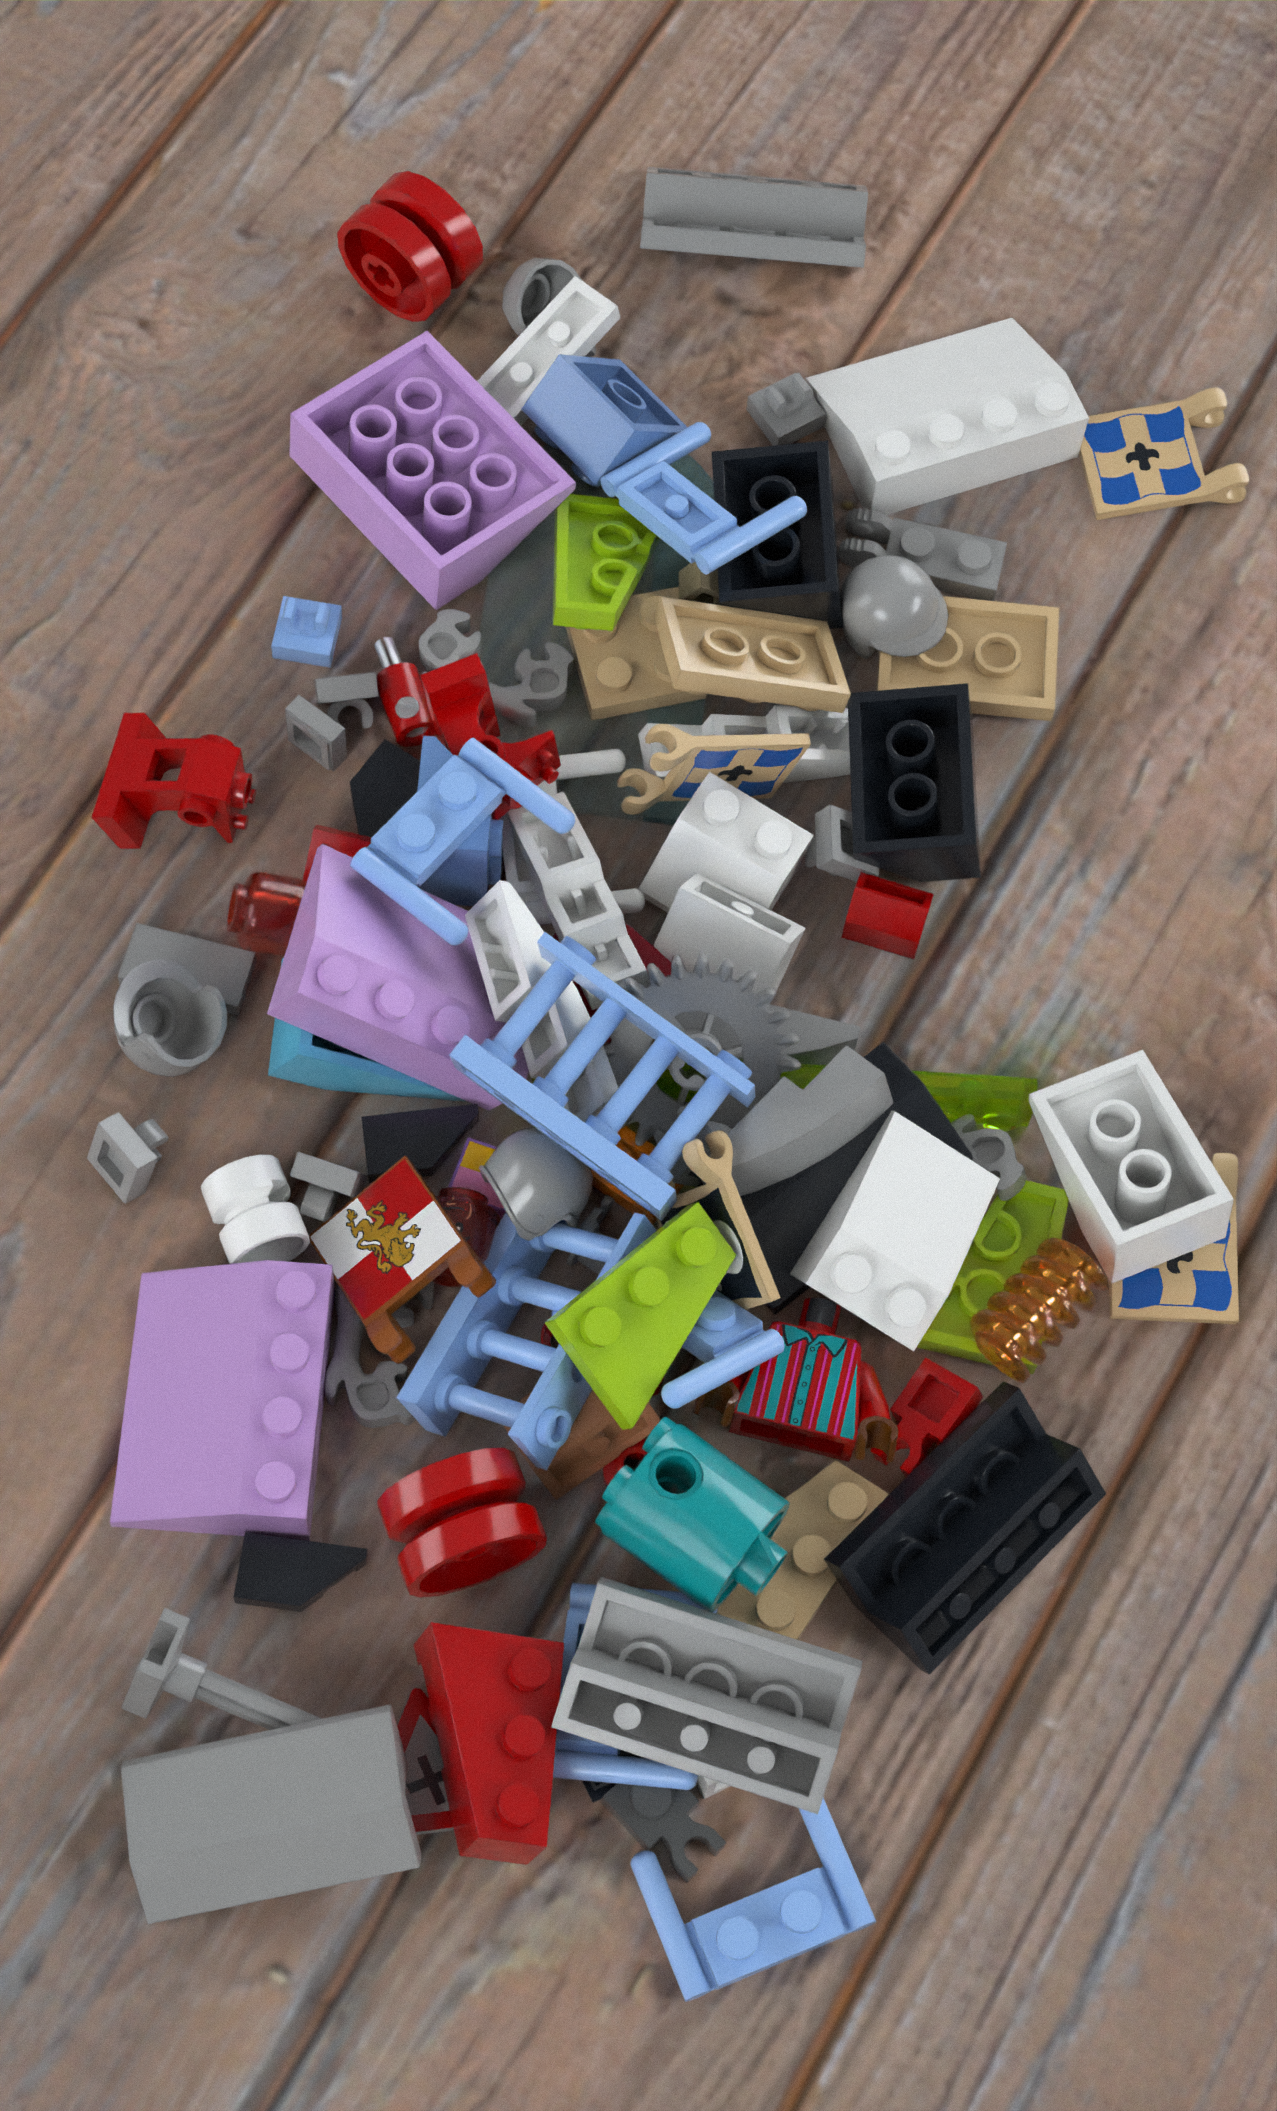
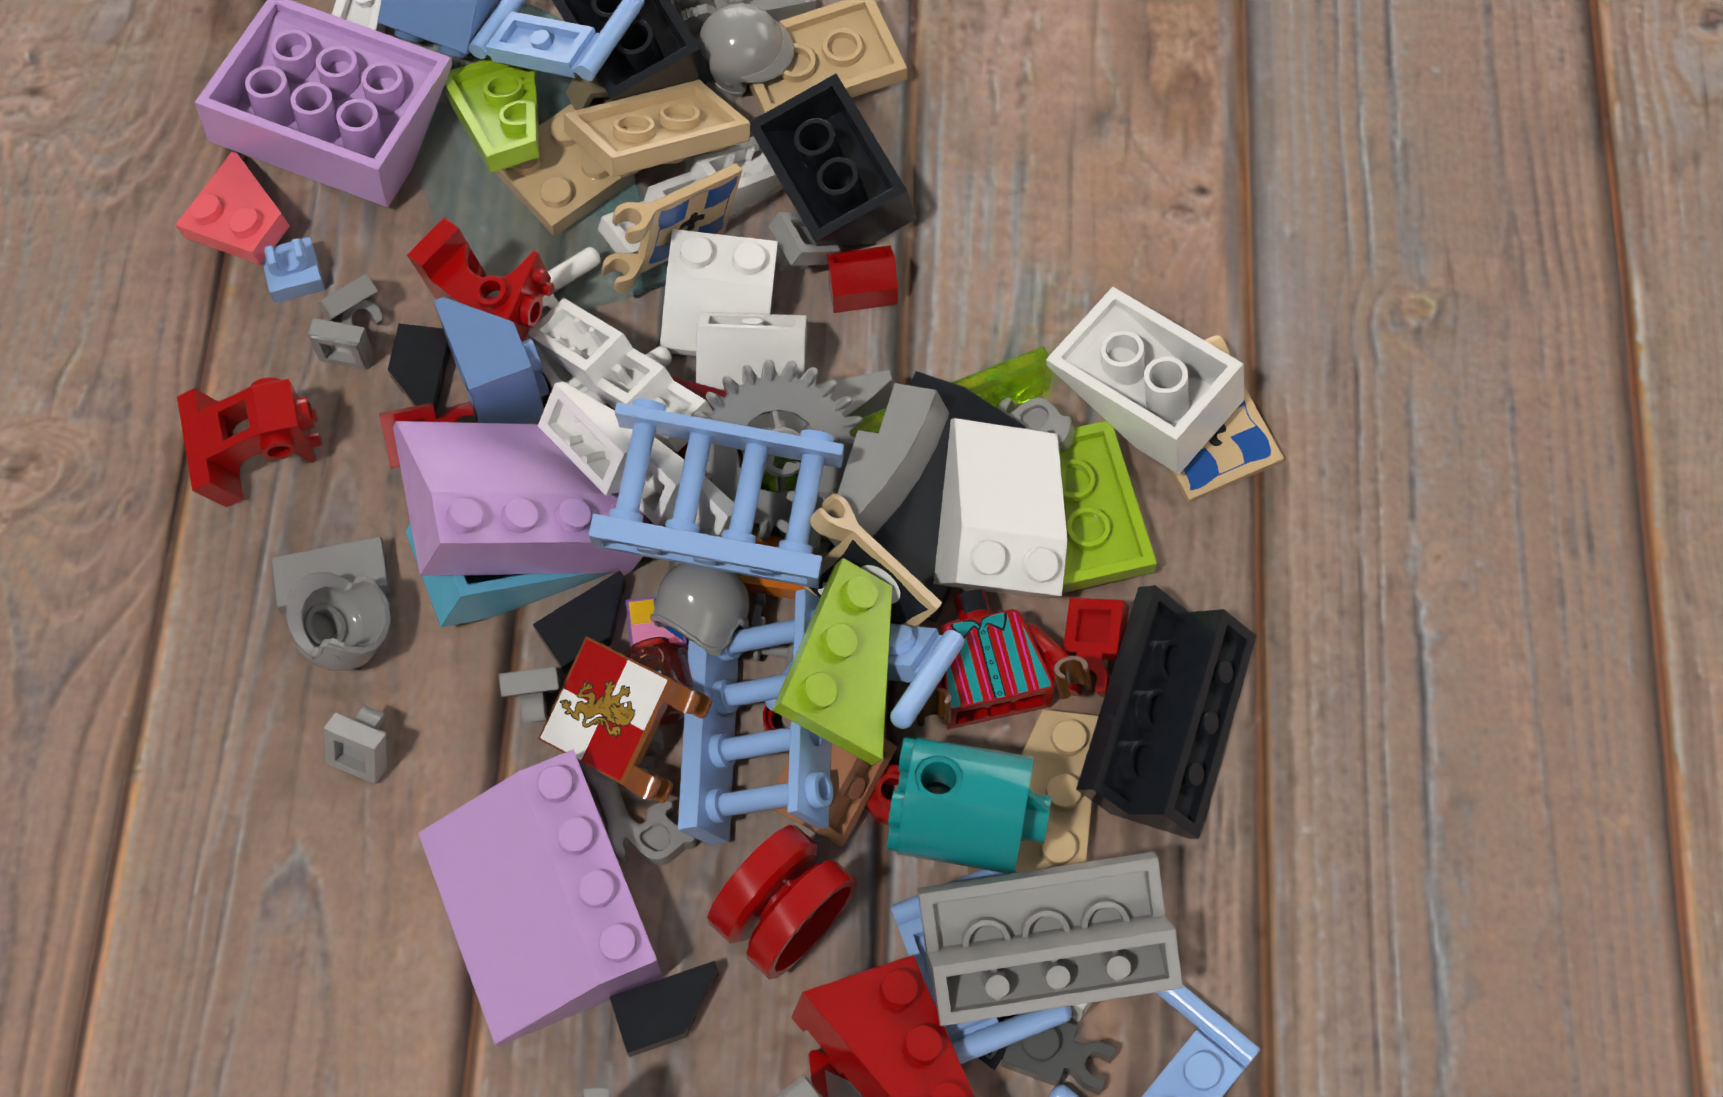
camera: 20 degrees left, 0 degrees up
(254, 1207) = (480, 733): white wheel -> none
(265, 911) = (374, 500): clear red head -> none
(277, 546) = (234, 214): none -> coral wing
(403, 697) = (397, 285): red piece -> none
(439, 821) = (482, 360): light blue plate -> none
(541, 681) = (501, 227): light grey helmet -> none
(1033, 1304) = (1136, 517): clear orange piece -> none

